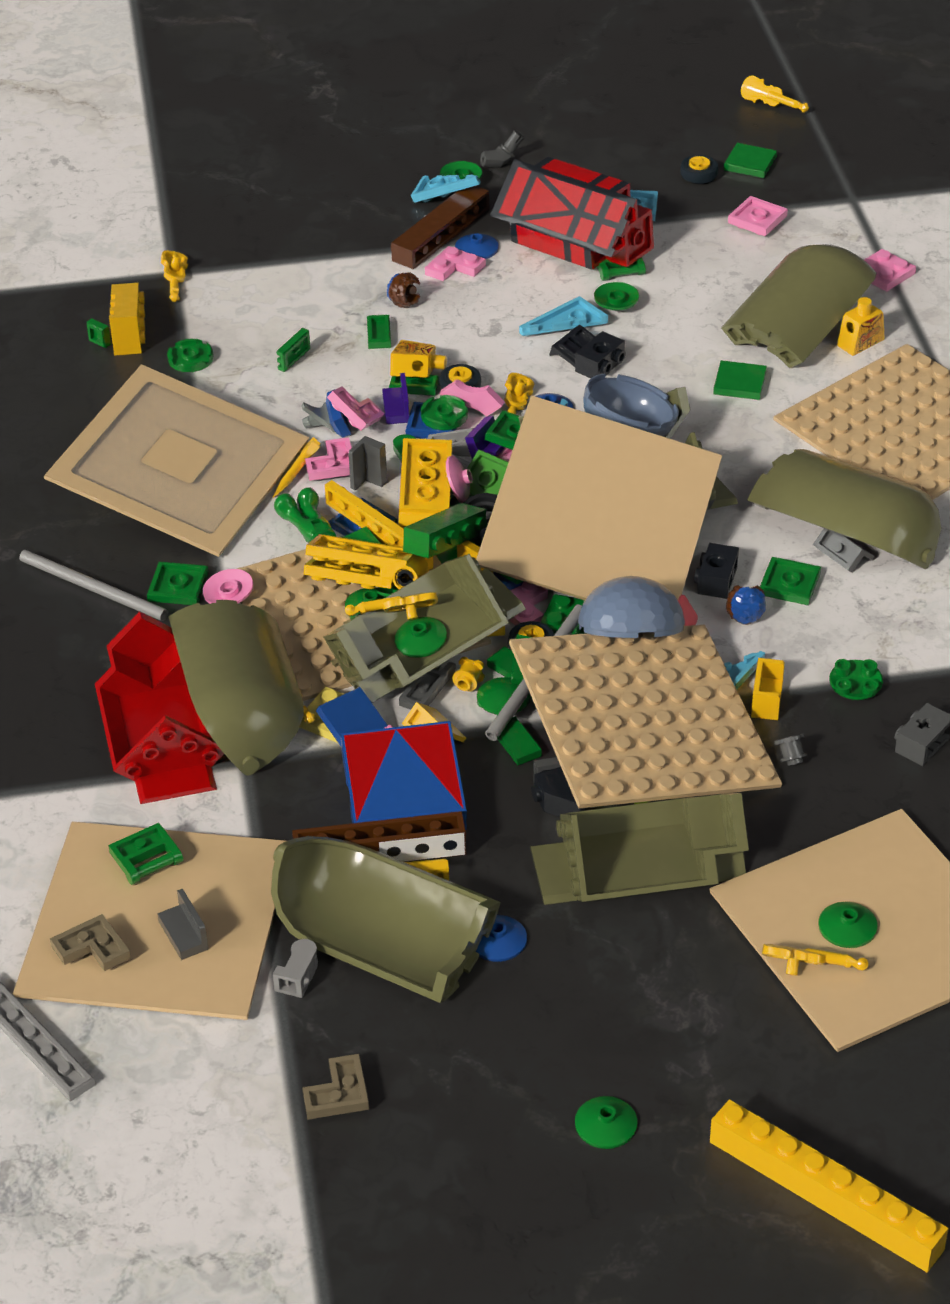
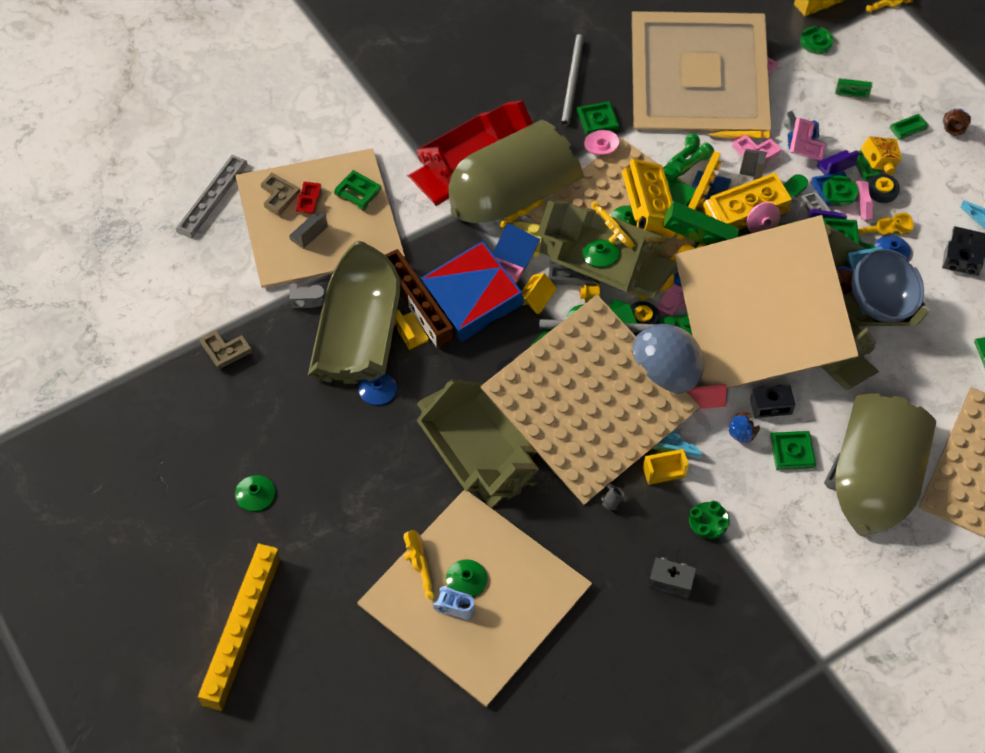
camera: 65 degrees right, 15 degrees up
(122, 915) = (309, 197): none -> red slope
(886, 938) = (451, 601): none -> light blue piece

